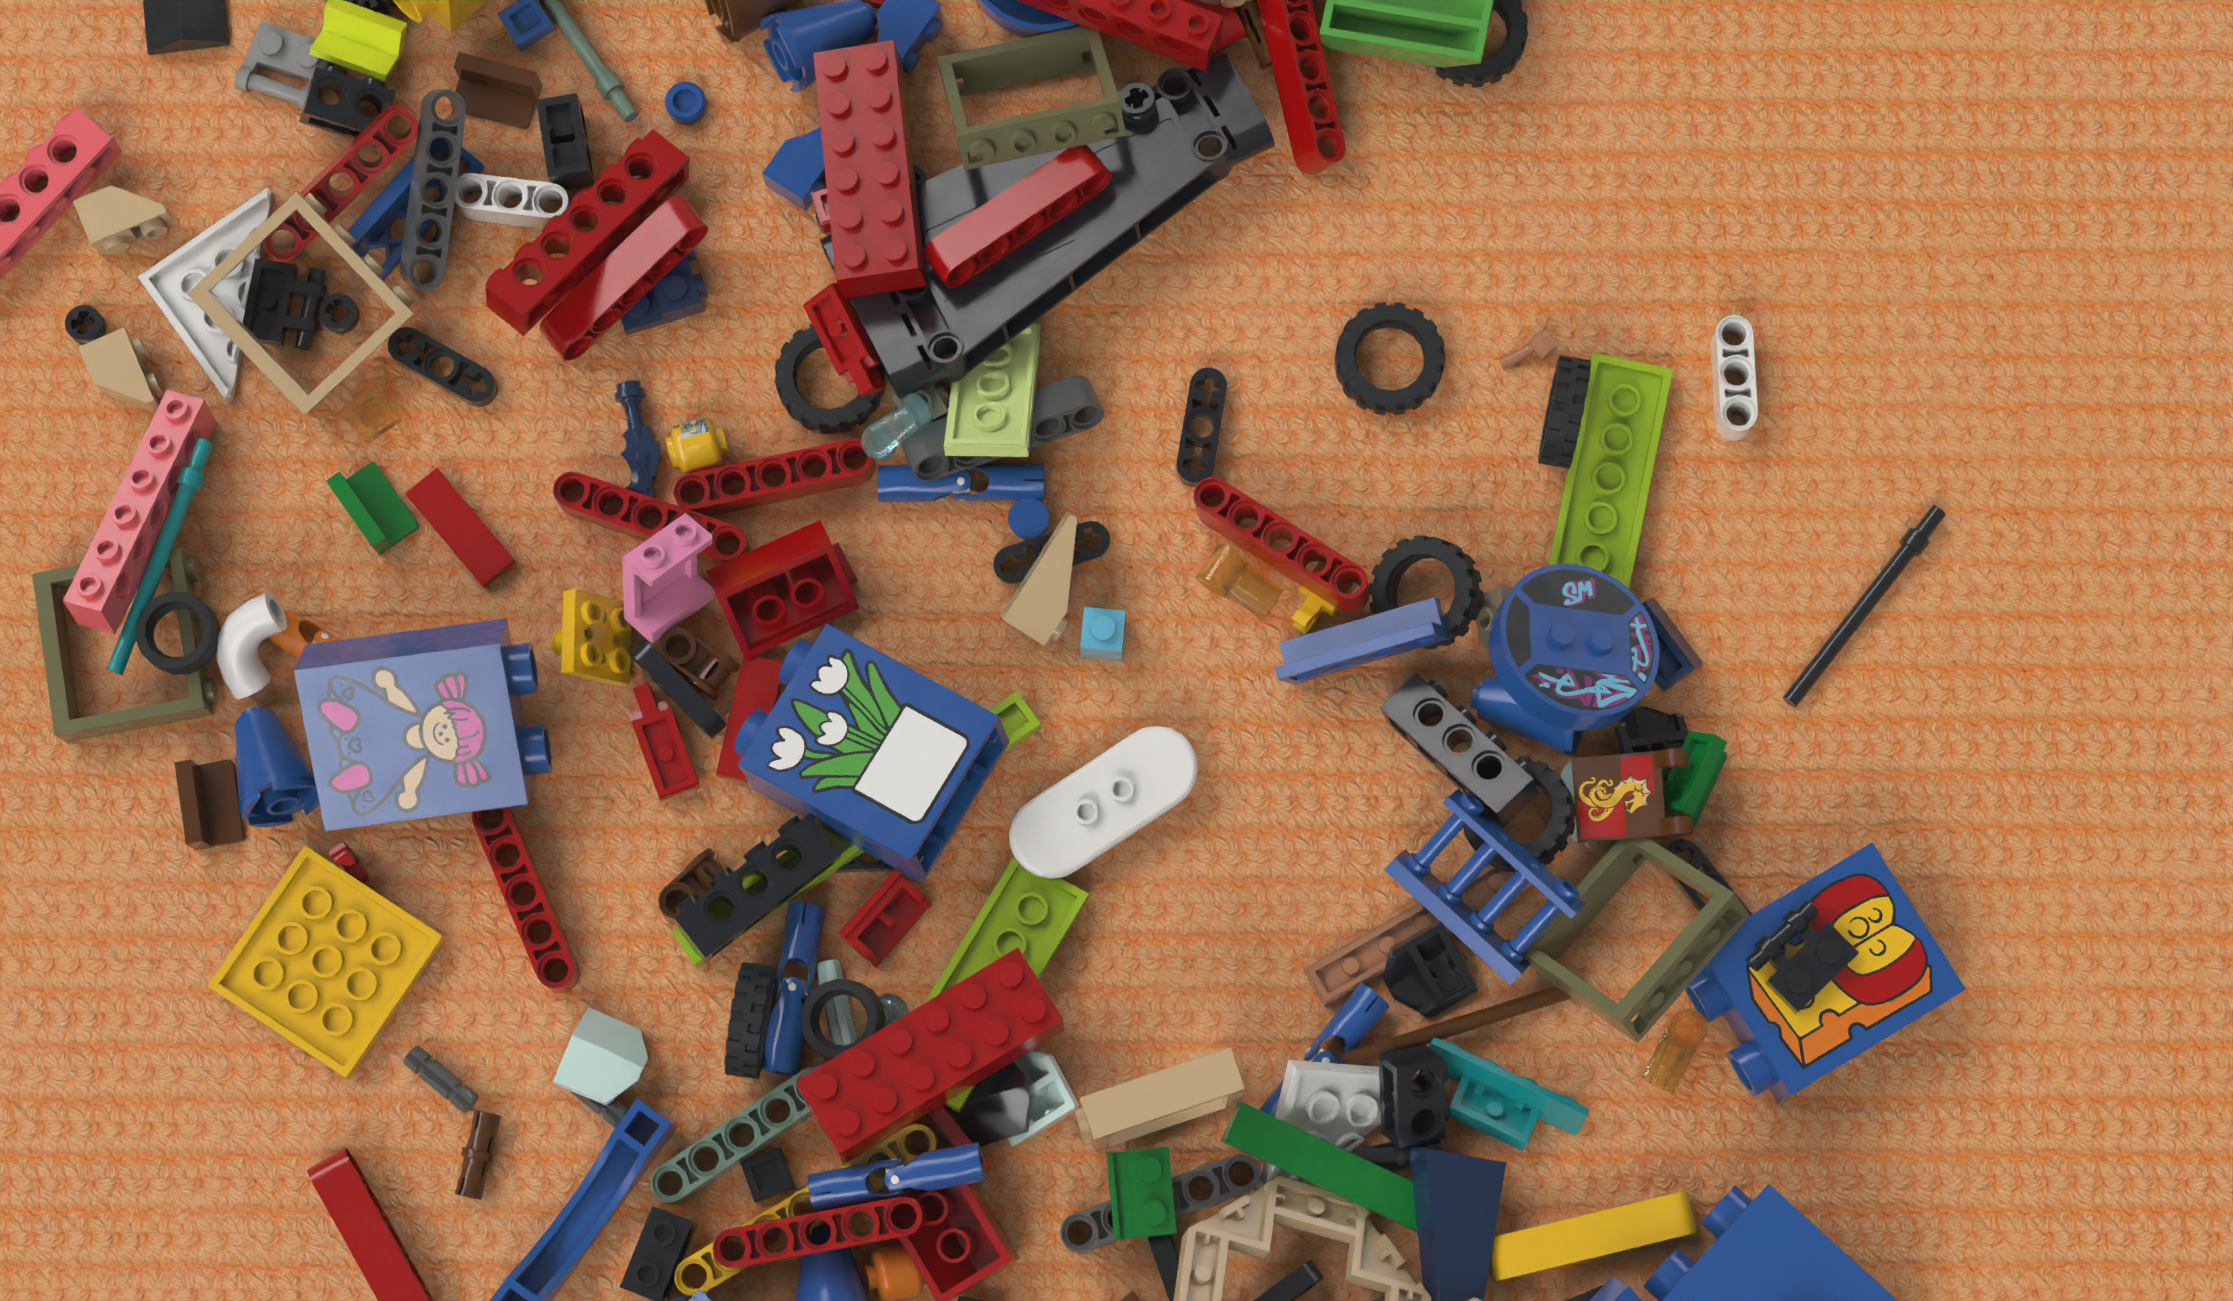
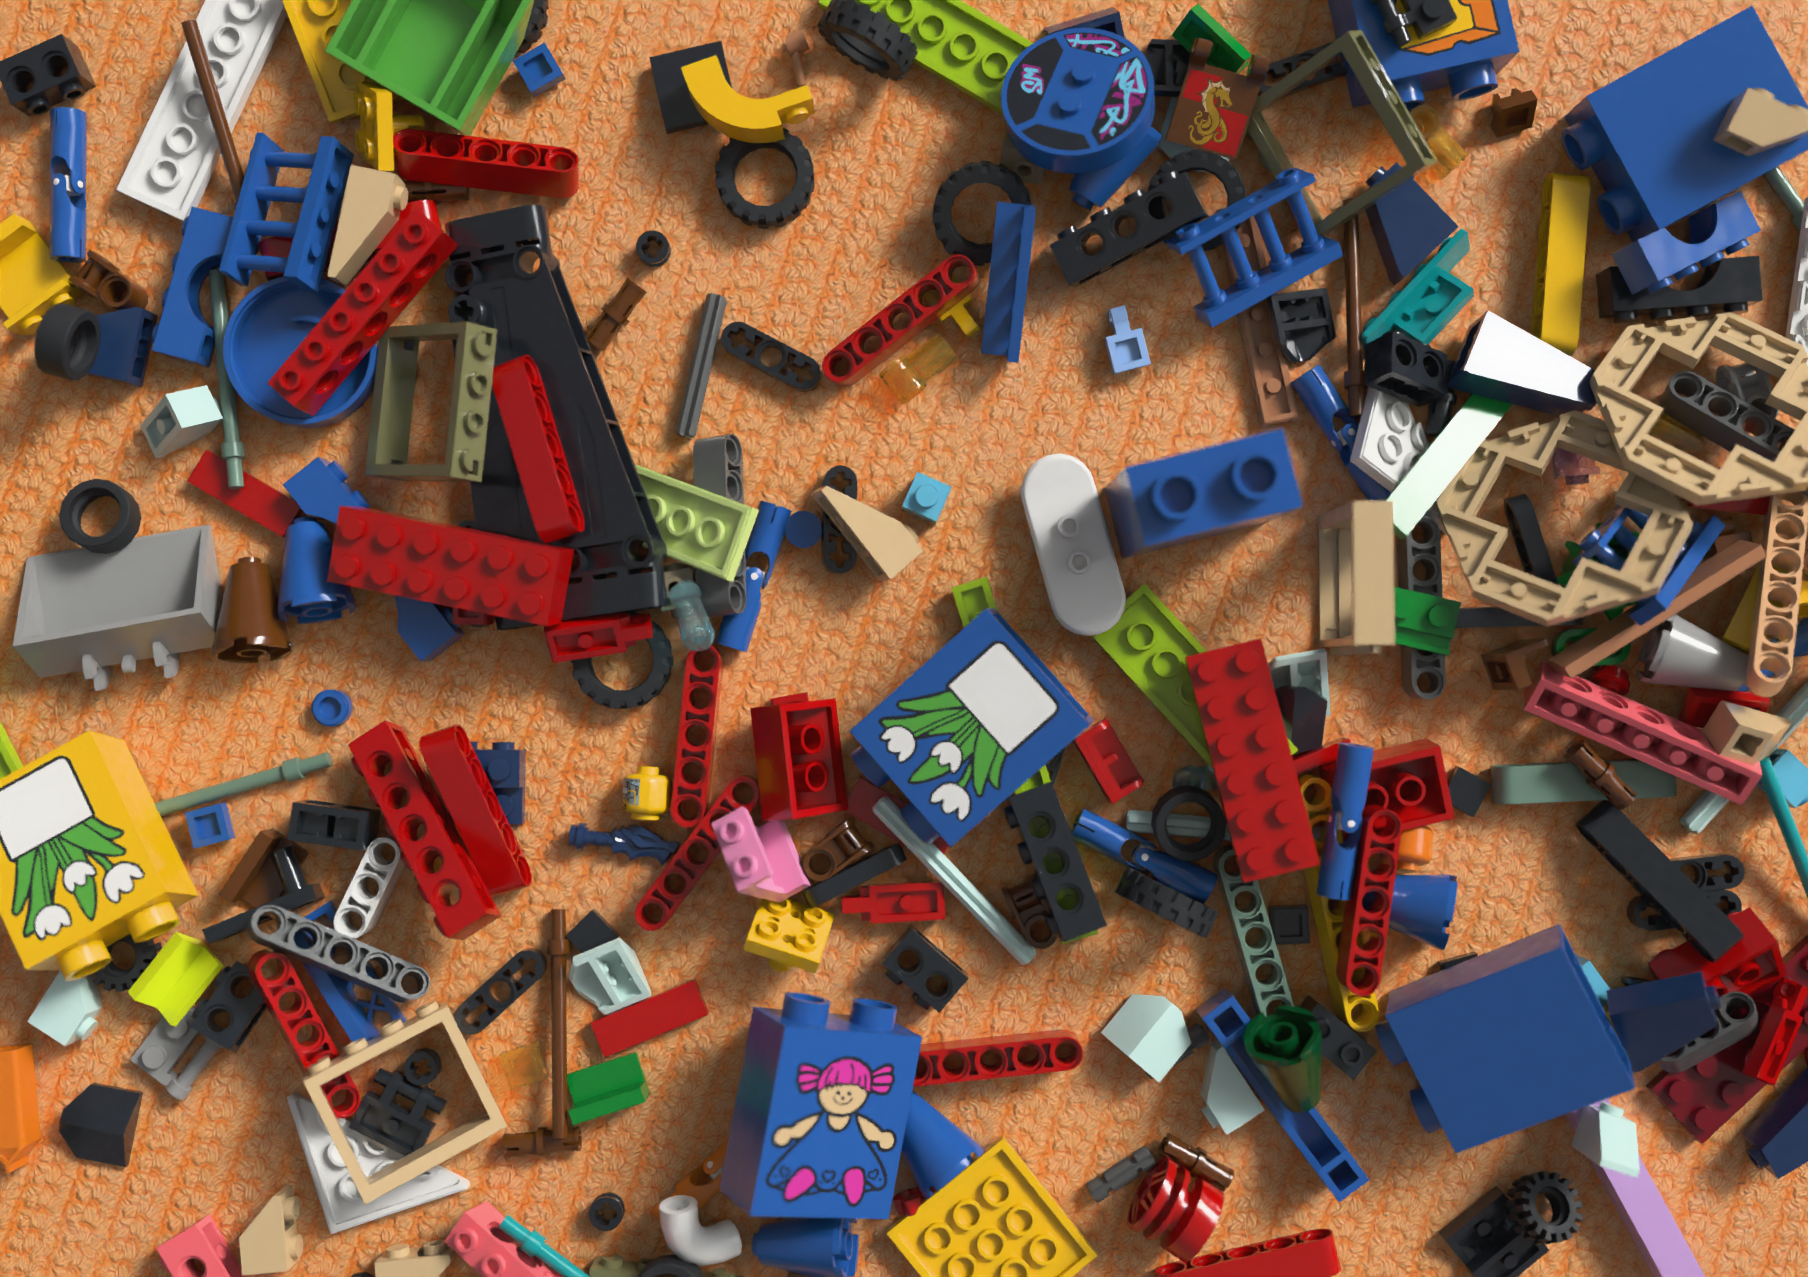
camera: 75 degrees left, 10 degrees up
(254, 556) = (597, 1220): none -> black bush
(296, 459) = (540, 1143): none -> reddish brown pin
(414, 862) = (935, 1146): none -> blue cone
(422, 1139) = (1175, 1209): none -> red wheel
(480, 130) = (297, 896): none -> black piece
(492, 471) = (609, 976): none -> light aqua slope
(505, 410) = (558, 947): none -> reddish brown bar
(529, 441) = (592, 932): none -> black tile
(562, 1162) = (1226, 1092): none -> light aqua slope
(609, 797) = (931, 962): none -> black brick
(622, 1200) = (1288, 1055): none -> dark green cone
(700, 800) = (956, 882): none -> light aqua axle
(1167, 358) = (700, 365): none -> dark grey axle
(1190, 253) = (615, 314): none -> reddish brown pin
(1191, 899) = (1203, 493): none -> blue brick
(1278, 258) = (643, 243): none -> black bush
(1337, 794) = (1127, 346): none -> light blue plate
(1420, 94) = (539, 69): none -> blue plate
(1437, 323) = (741, 116): none -> yellow arch
(1458, 256) = (673, 94): none -> black slope
(1571, 1054) = (1406, 225): none -> dark blue slope
(1739, 1129) = (1513, 112): none -> reddish brown tile

